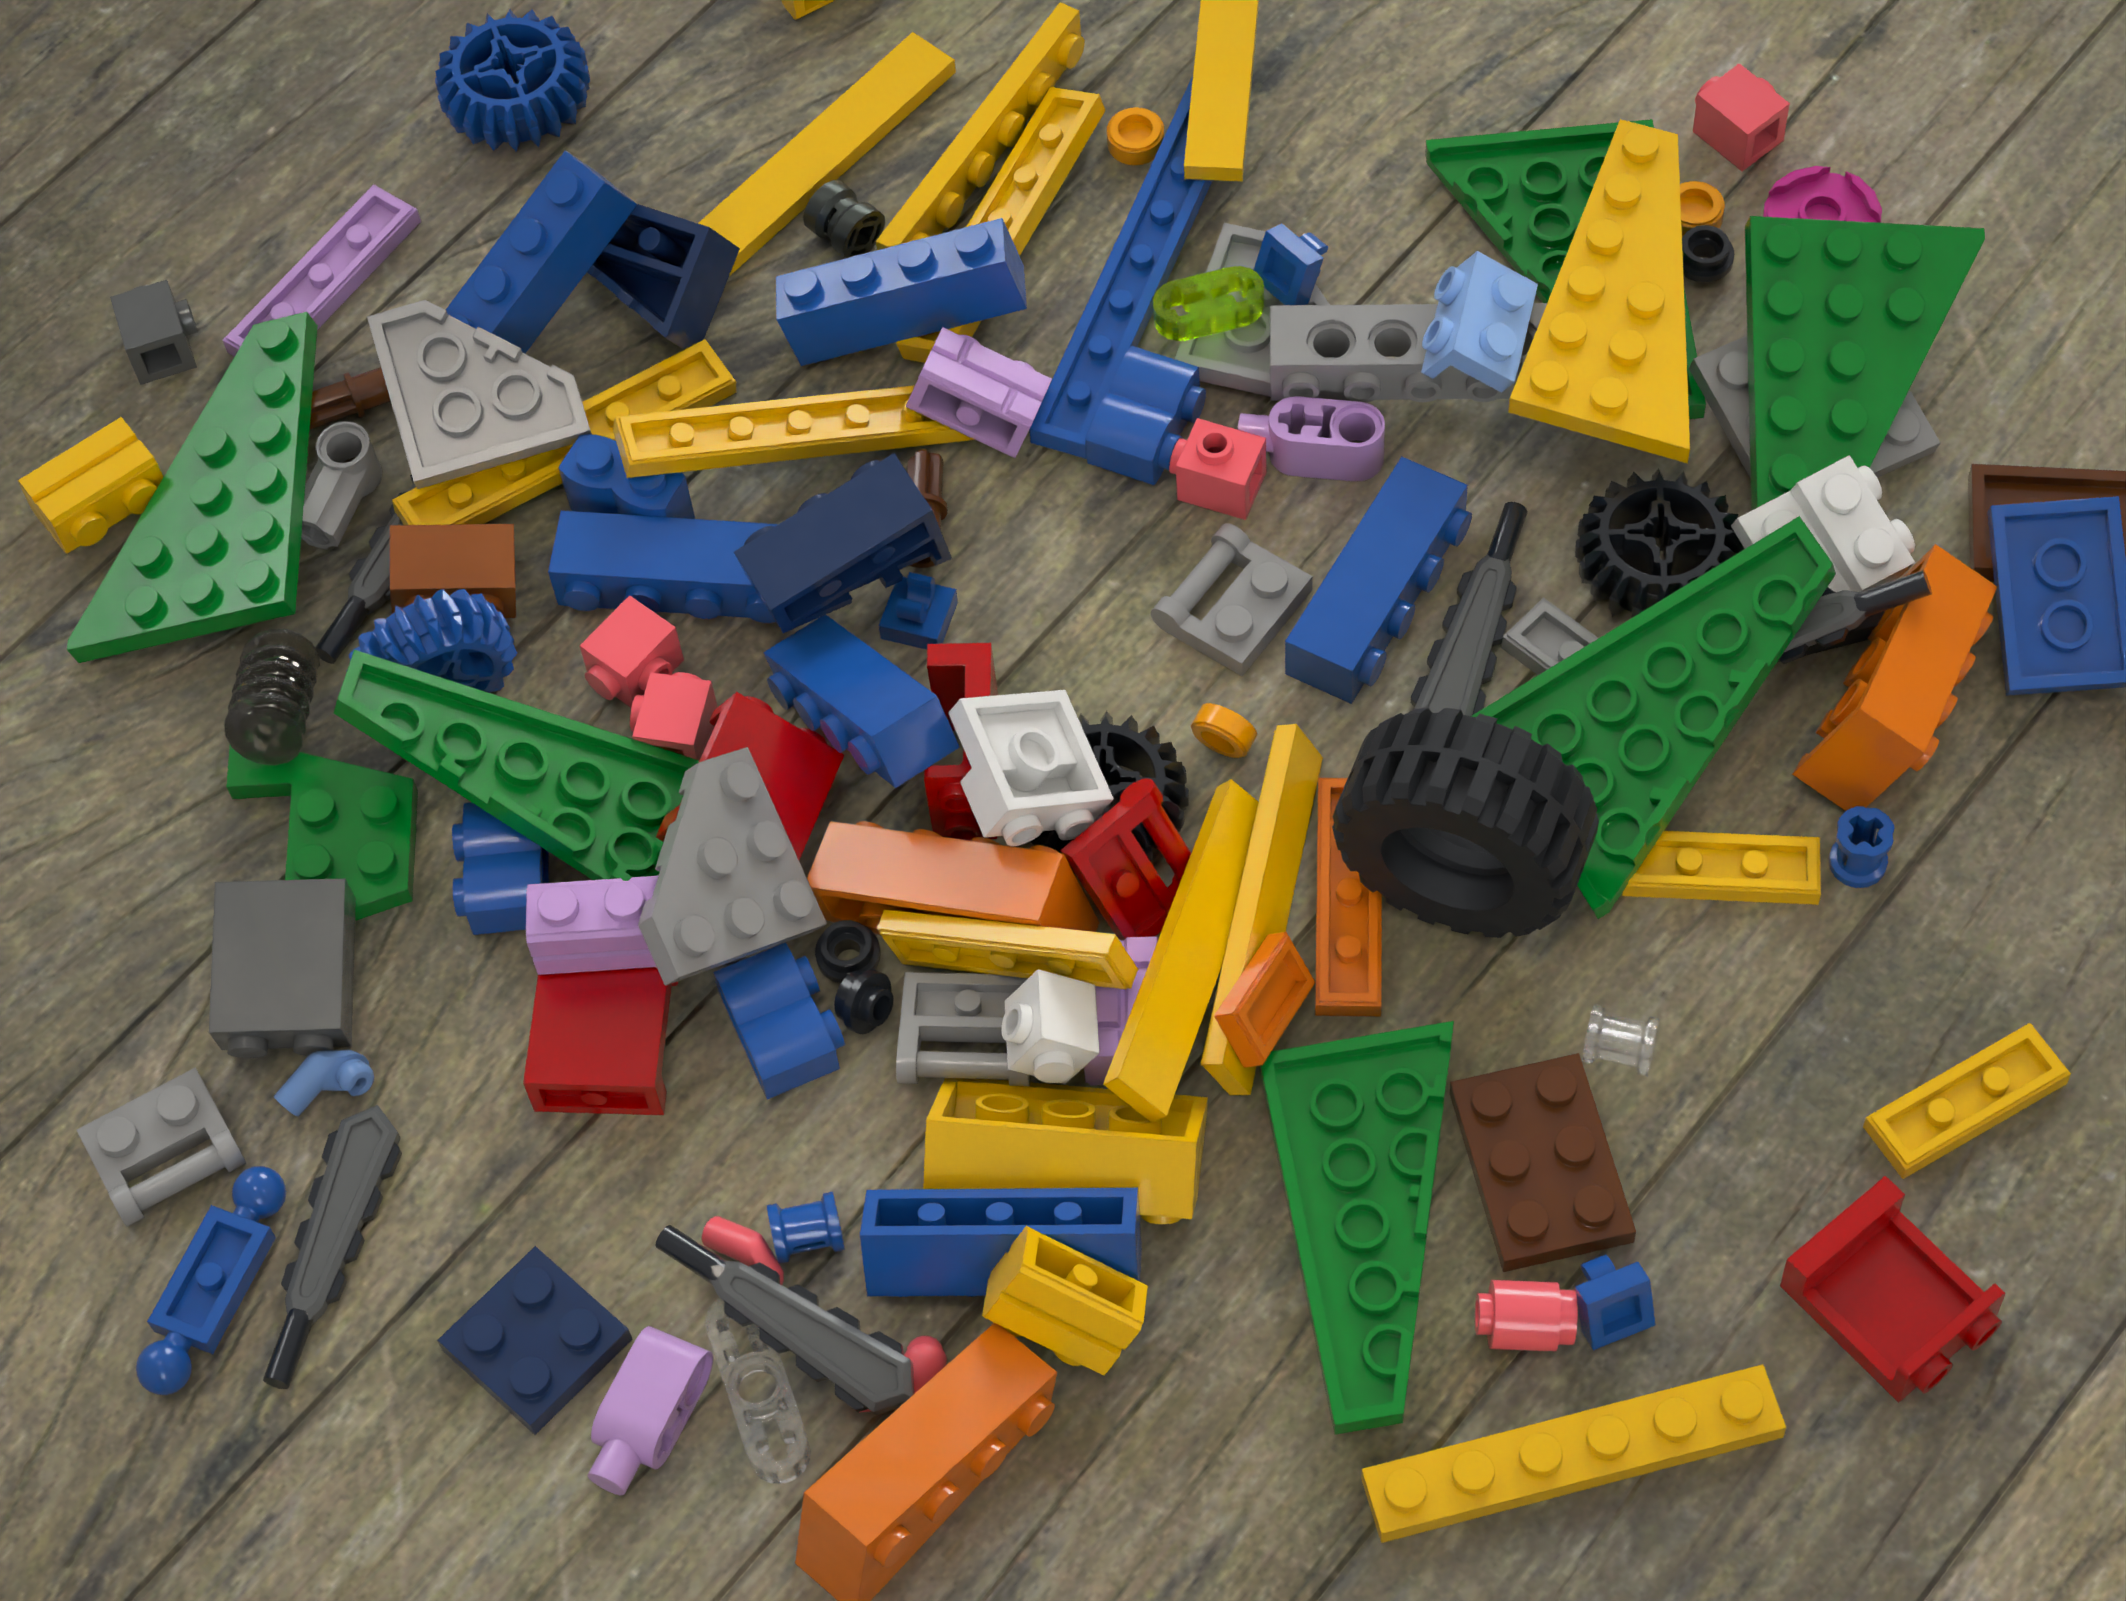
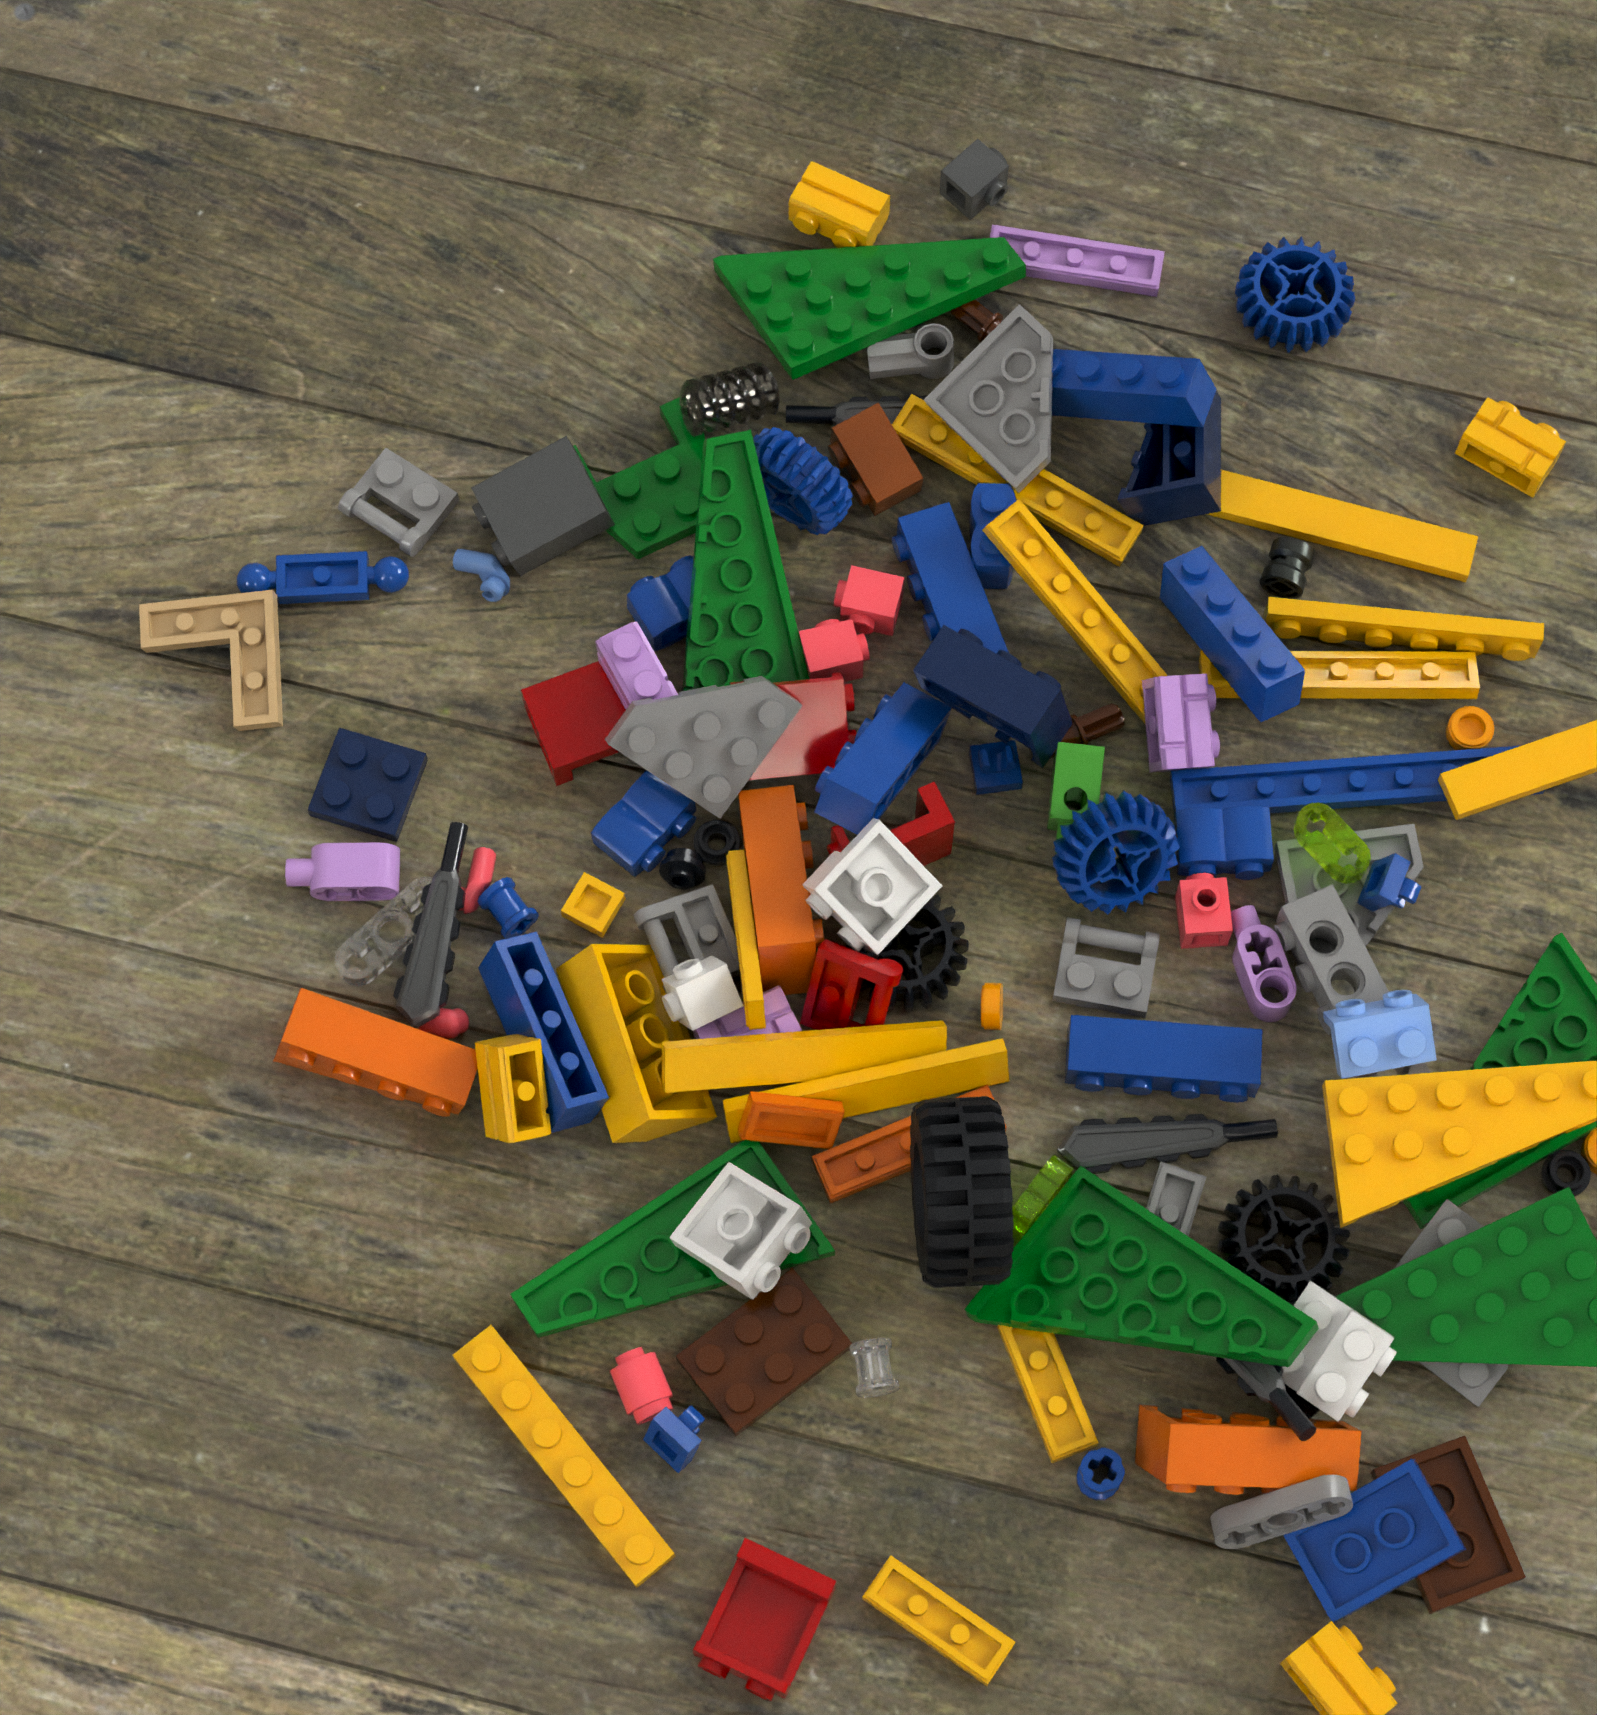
camera: 60 degrees right, 10 degrees up
(212, 1400) = (243, 621): none -> tan plate
(342, 1201) = (412, 626): dark grey sword -> none
(855, 1125) = (593, 904): none -> yellow plate
(1007, 531) = (1074, 779): none -> bright green torso
(1109, 511) = (1143, 845): none -> blue gear
(1388, 1101) = (743, 1231): none -> white plate
(1991, 671) = (1281, 1511): none -> light grey beam

